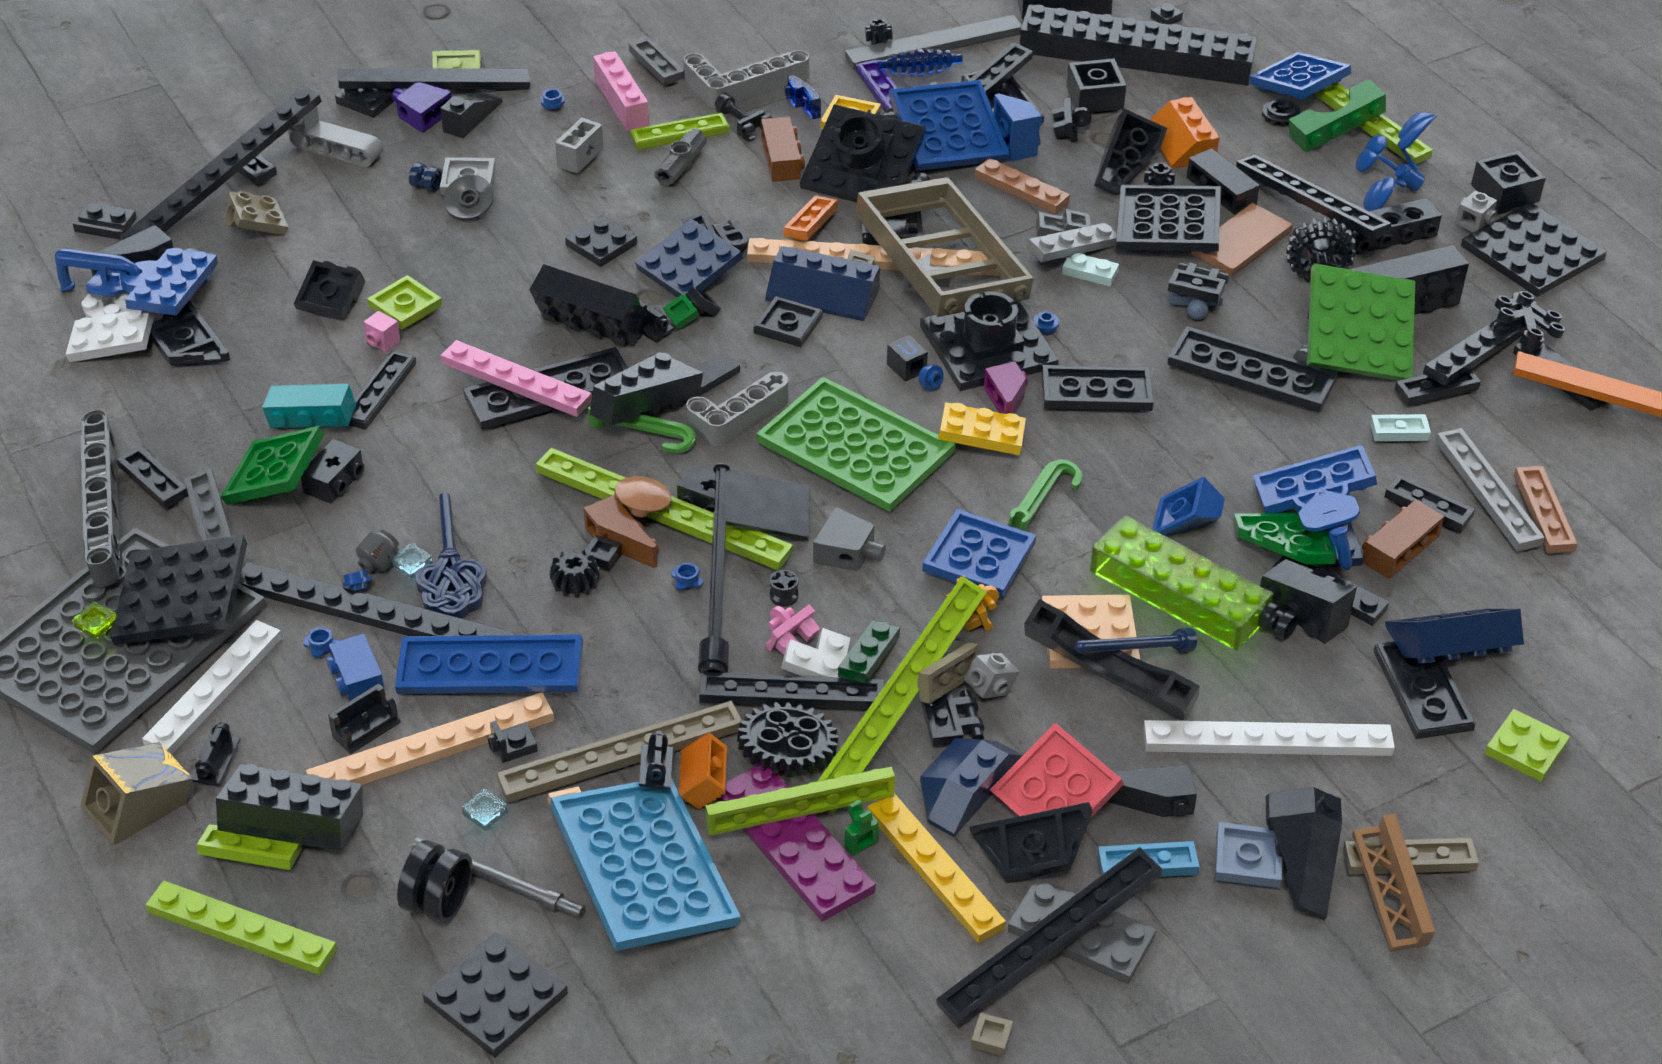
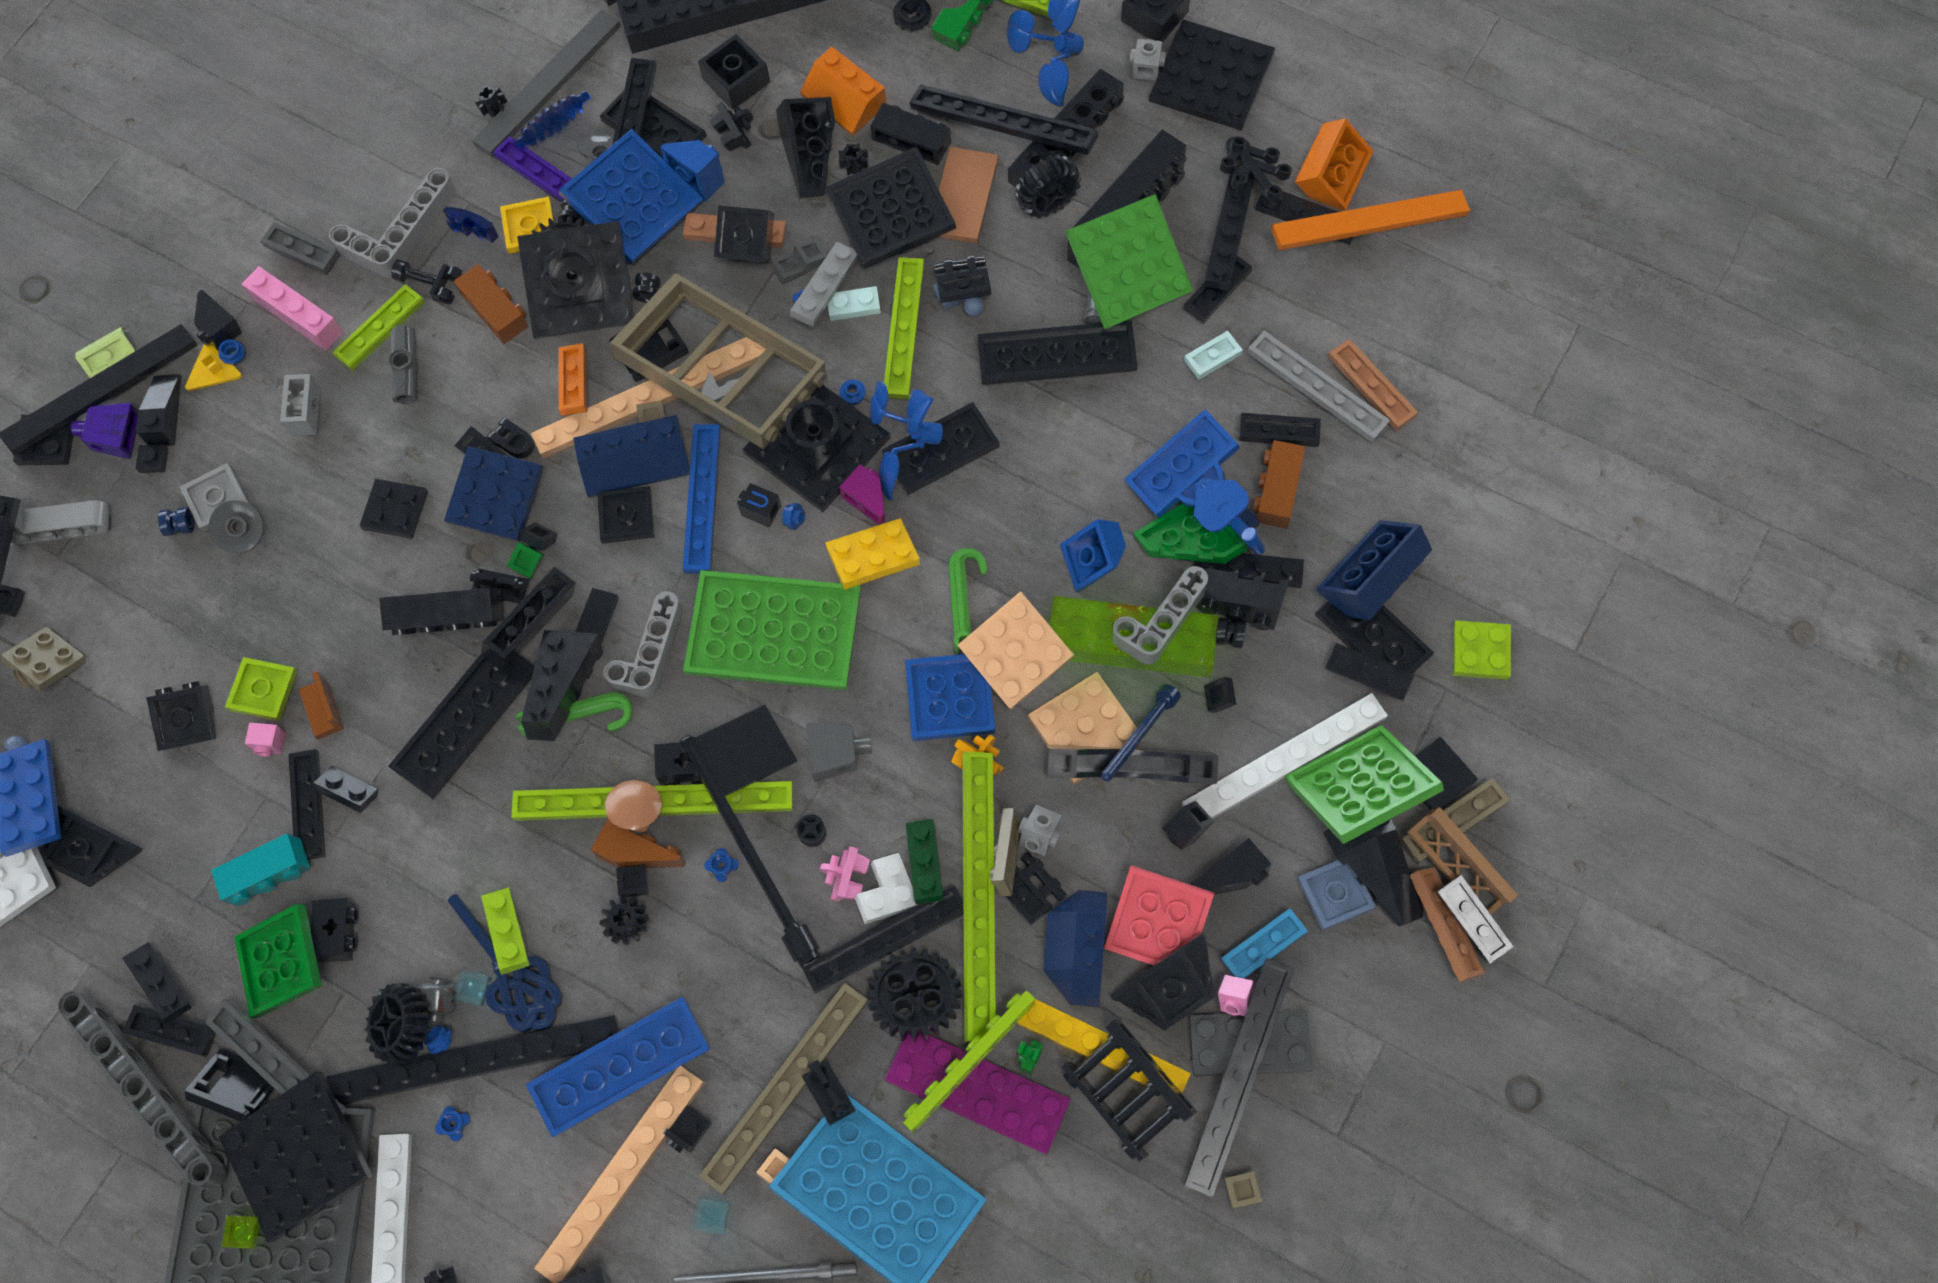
camera: 25 degrees left, 25 degrees up
(169, 441) = (157, 983): none -> black plate
(177, 530) = (236, 1093): none -> black container
(333, 545) = (397, 1023): none -> black gear
(354, 666) = (505, 1138): brick -> none
(363, 719) = (549, 1187): black hinge -> none
(417, 390) = (345, 789): none -> plate
(439, 137) = (151, 458): none -> black plate
(441, 332) = (321, 707): none -> dark orange panel
(469, 534) = (505, 931): none -> lime plate
(516, 378) = (429, 729): bright pink plate -> none
(527, 106) = (210, 370): none -> yellow piece
(553, 74) = (213, 322): none -> black slope
(644, 338) = (527, 618): none -> black brick
(703, 771) = (868, 1073): orange brick -> none
(860, 334) = (701, 498): none -> blue plate
(966, 901) = (1157, 1084): none -> black fence
(1026, 181) = (744, 234): none -> black container
(1062, 535) = (1016, 650): none -> light nougat plate
(1086, 871) = (1235, 995): none -> bright pink plate
(1087, 360) = (919, 430): none -> blue plant
(1122, 299) = (903, 327): none -> lime plate
(1135, 733) = (1188, 825): none -> black brick
(1215, 567) = (1166, 613): none -> light grey beam
(1236, 660) = (1220, 694): none -> black plate
(1331, 770) = (1363, 784): none -> bright green plate
(1346, 929) = (1450, 933): none -> nougat plate
(1378, 934) = (1474, 919): none -> plate
(1398, 707) = (1370, 672): none -> black plate
(1418, 812) = (1448, 769): none -> black tile
(1613, 345) = (1334, 164): none -> orange slope

